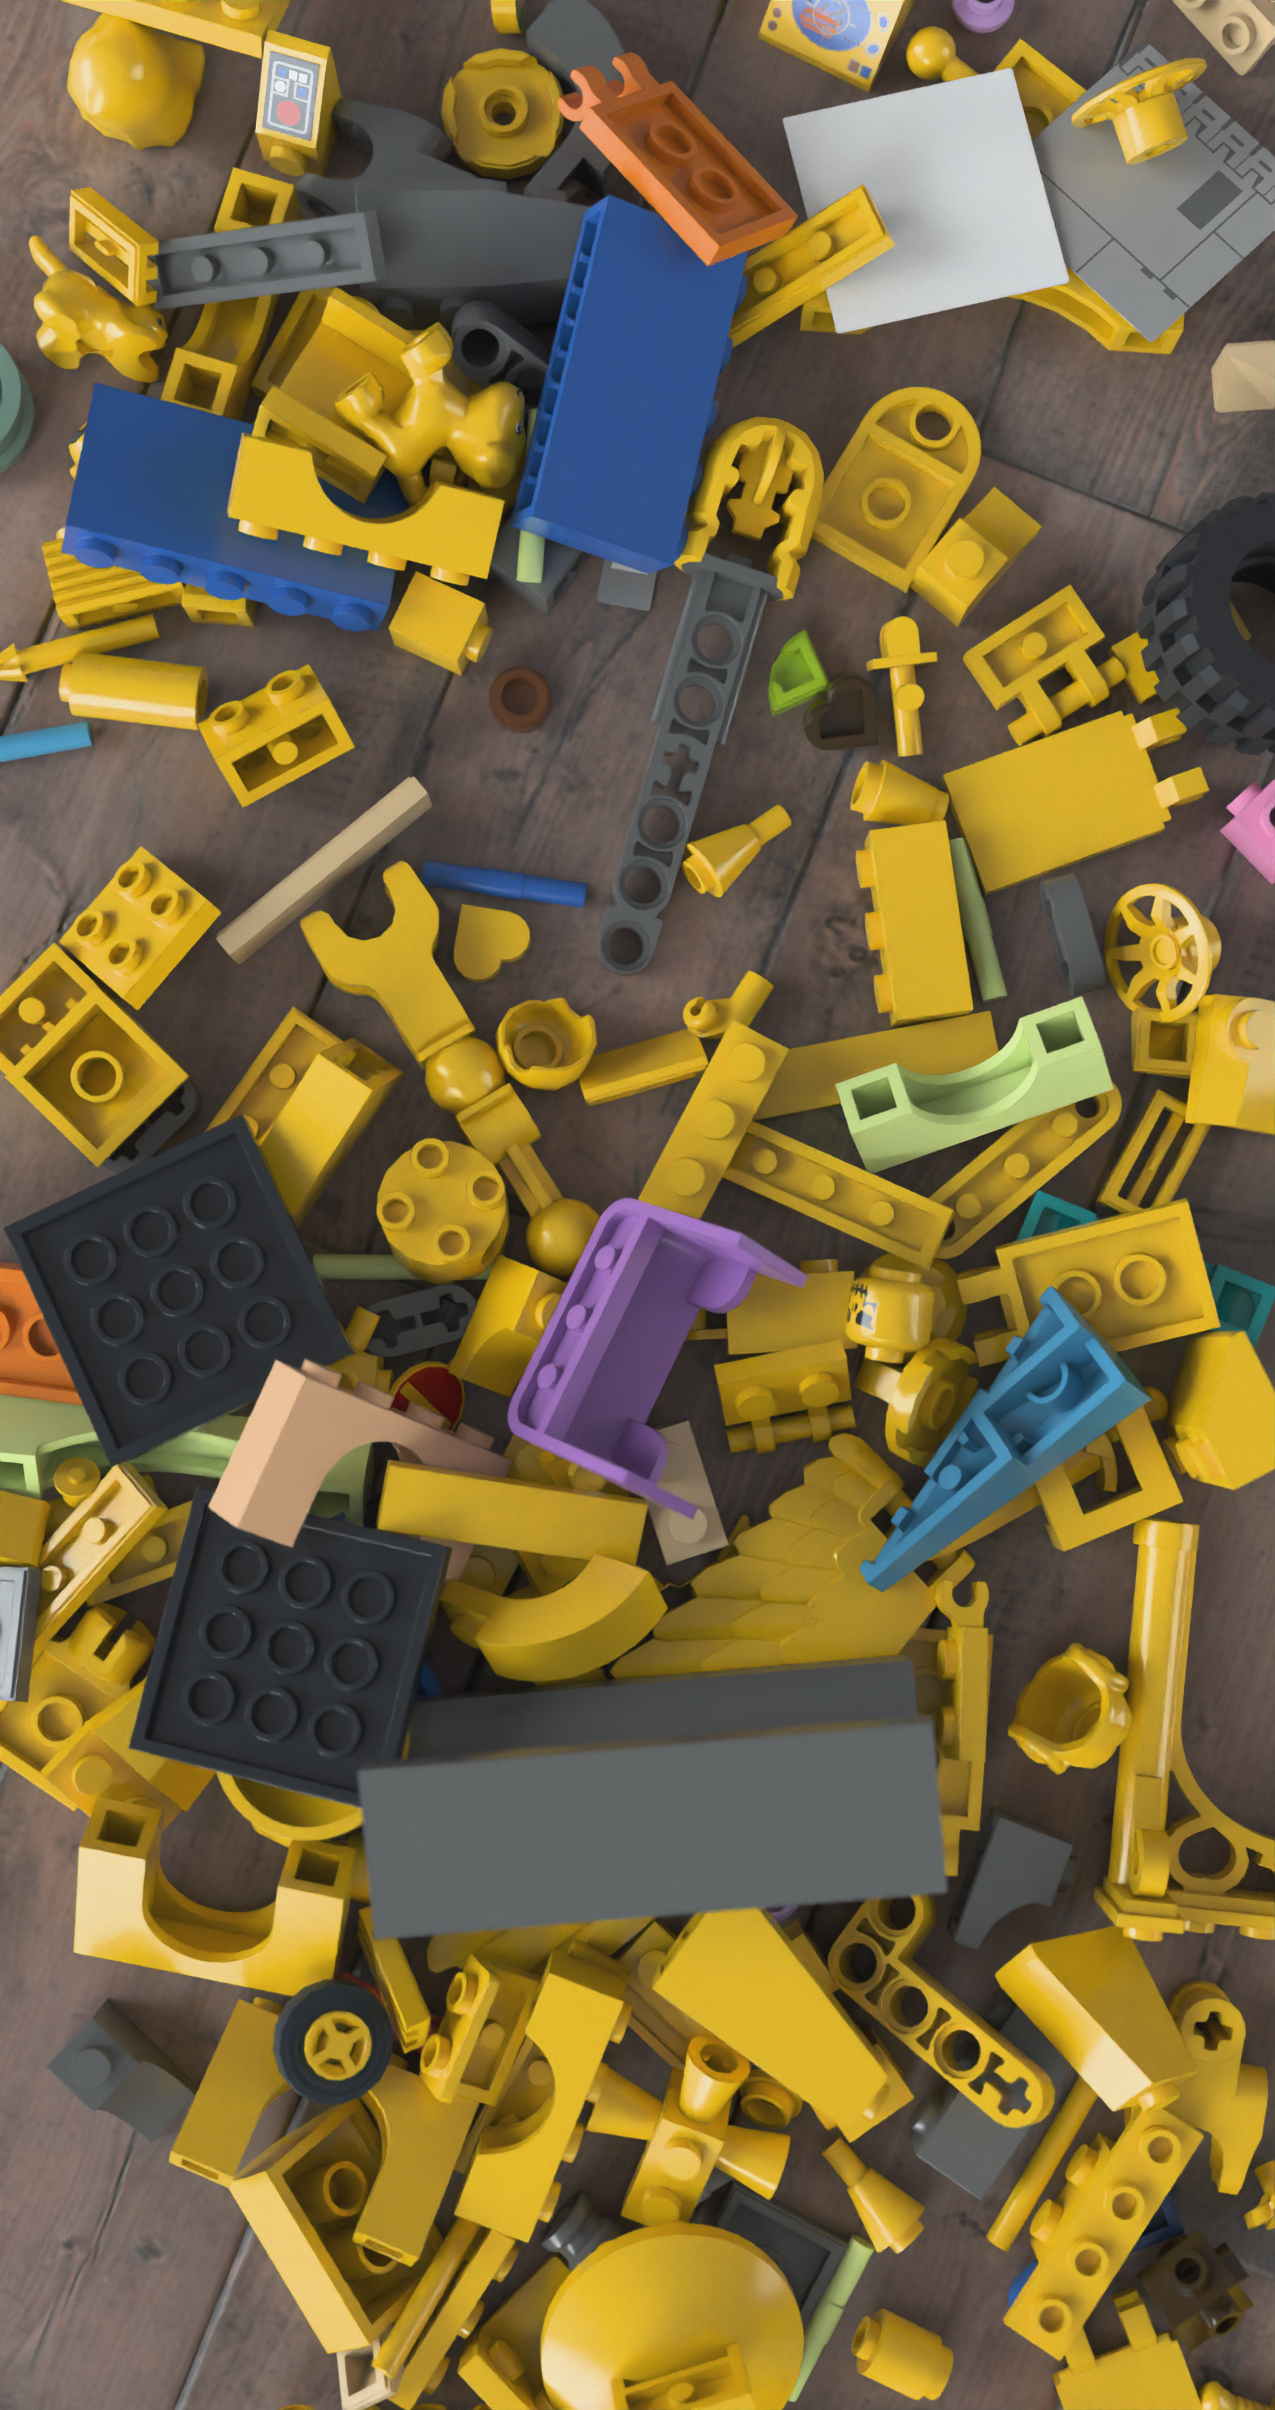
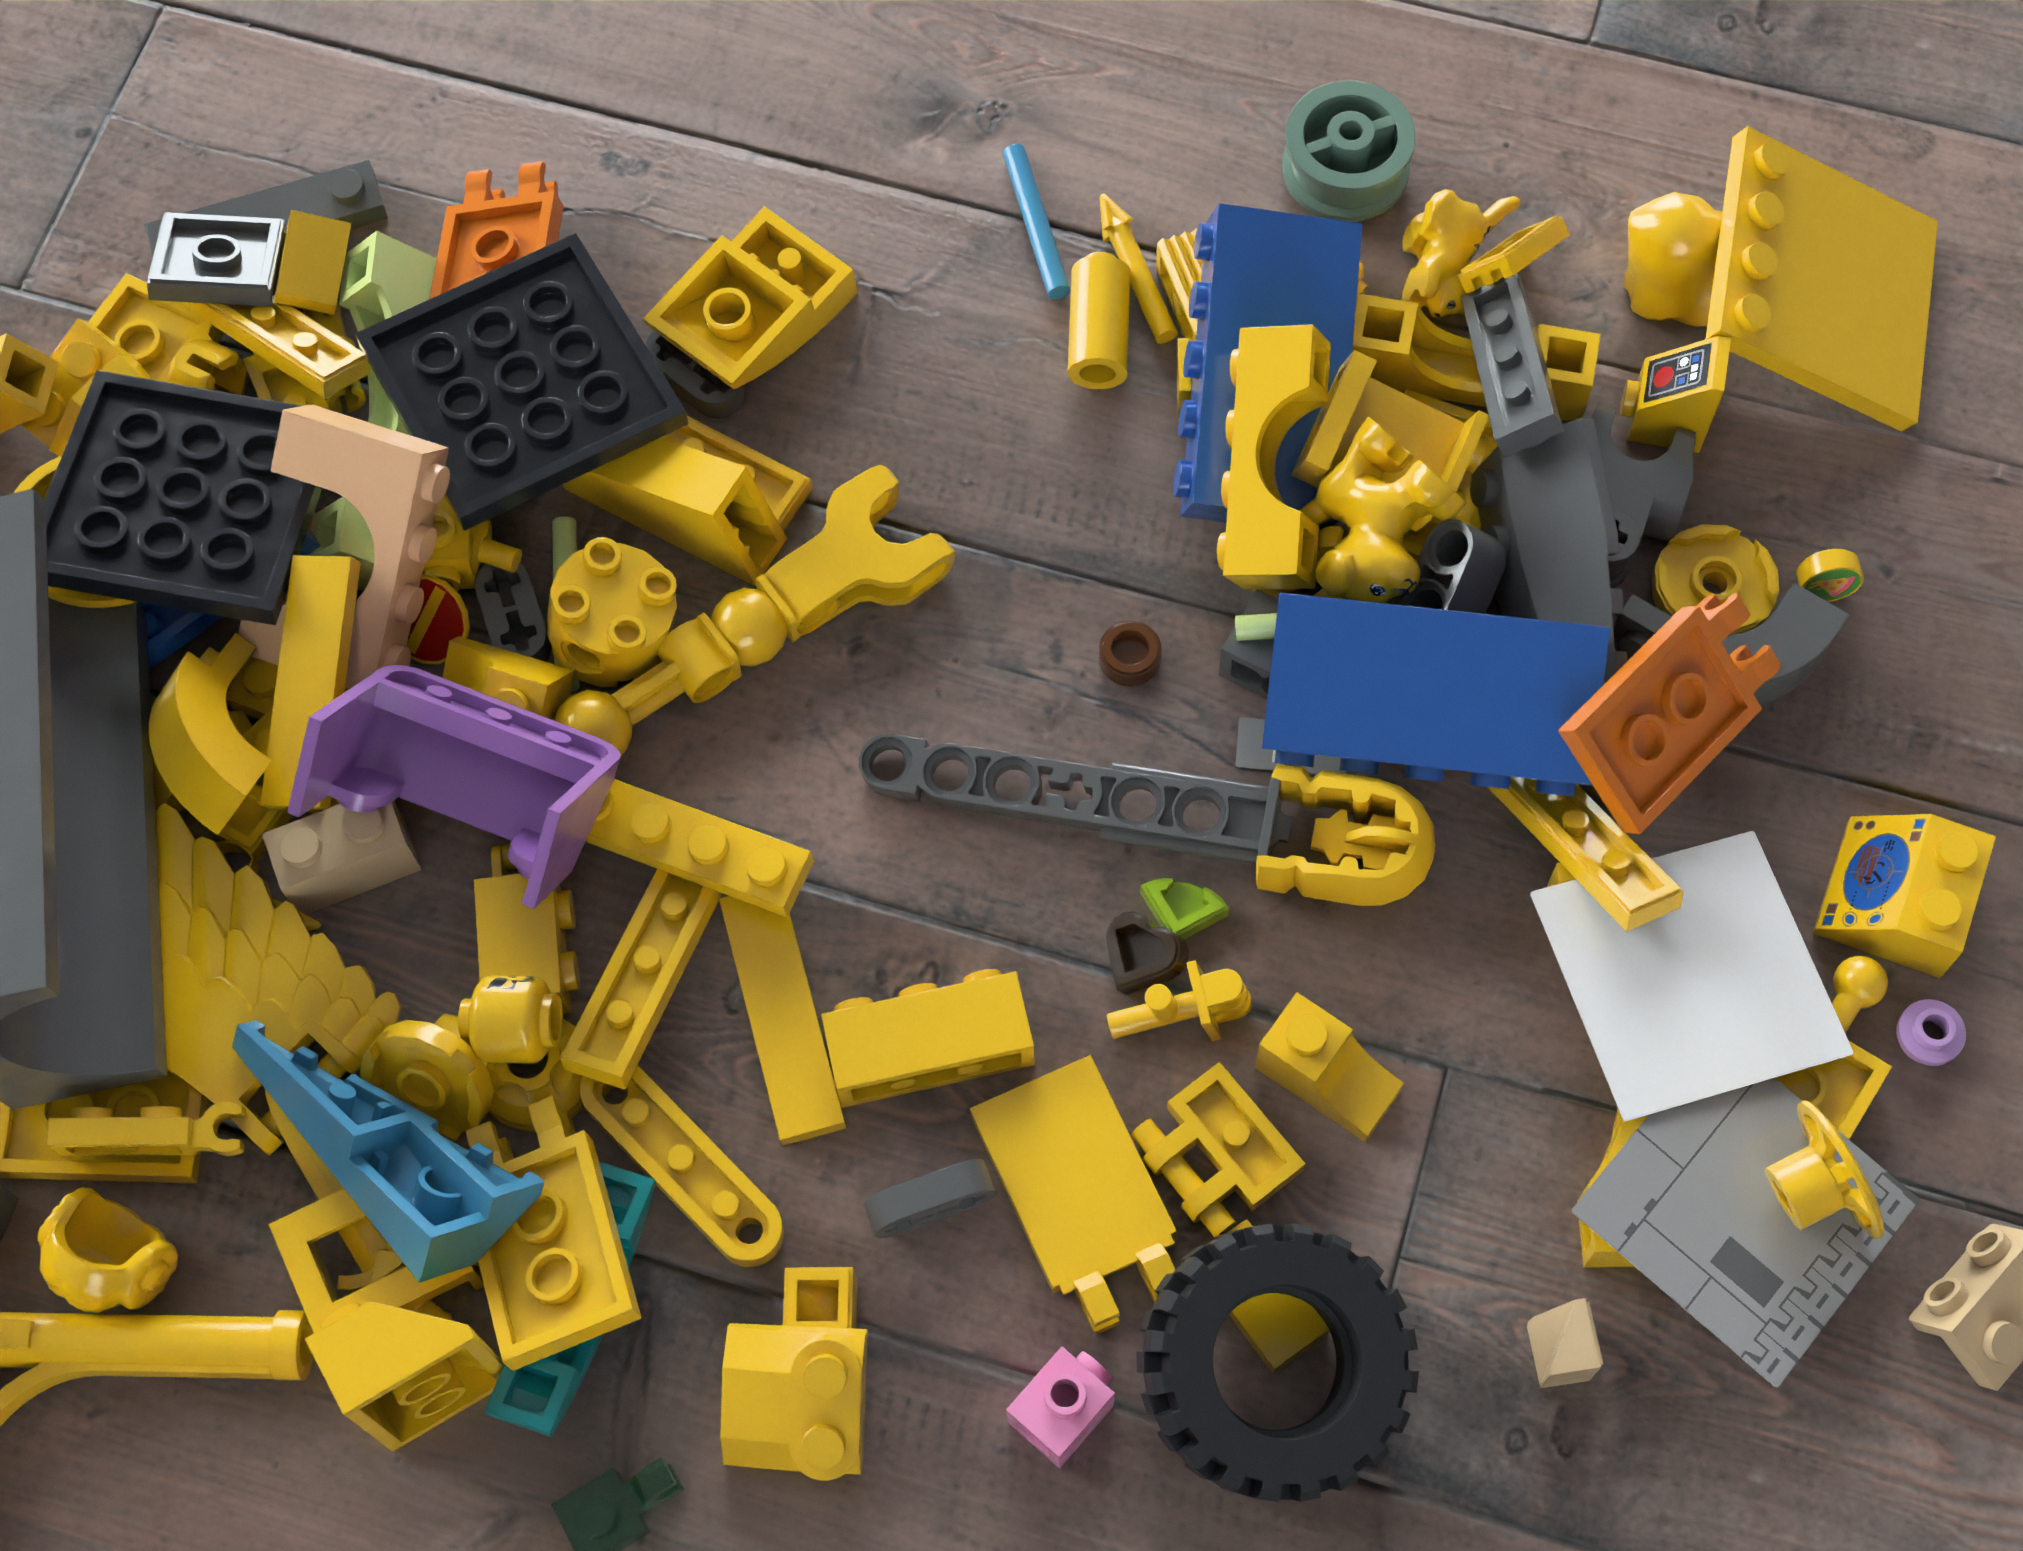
camera: 90 degrees right, 20 degrees down
(76, 1479) = (350, 322): yellow piece -> none
(139, 927) = (873, 341): yellow plate -> none
(275, 735) = (1064, 431): yellow brick -> none
(324, 870) = (942, 491): tan tile -> none
(441, 624) = (1187, 570): yellow brick -> none
(487, 941) = (886, 643): yellow tile -> none
(504, 884) = (944, 655): blue piece -> none
(545, 1043) = (783, 693): yellow hair -> none
(642, 1067) = (767, 785): yellow slope -> none
(712, 1017) = (828, 869): yellow arm -> none
(720, 858) = (985, 847): yellow cone -> none
(784, 1384) = (443, 927): yellow plate -> none
(895, 796) = (1061, 1010): yellow cone -> none
(896, 487) = (1396, 988): yellow tile -> none
(912, 1114) = (724, 1030): yellowish green arch -> none
(976, 923) = (938, 1104): yellowish green piece -> none
(1158, 1101) = (653, 1264): yellow tile -> none
(1169, 950) = (918, 1299): yellow wheel -> none

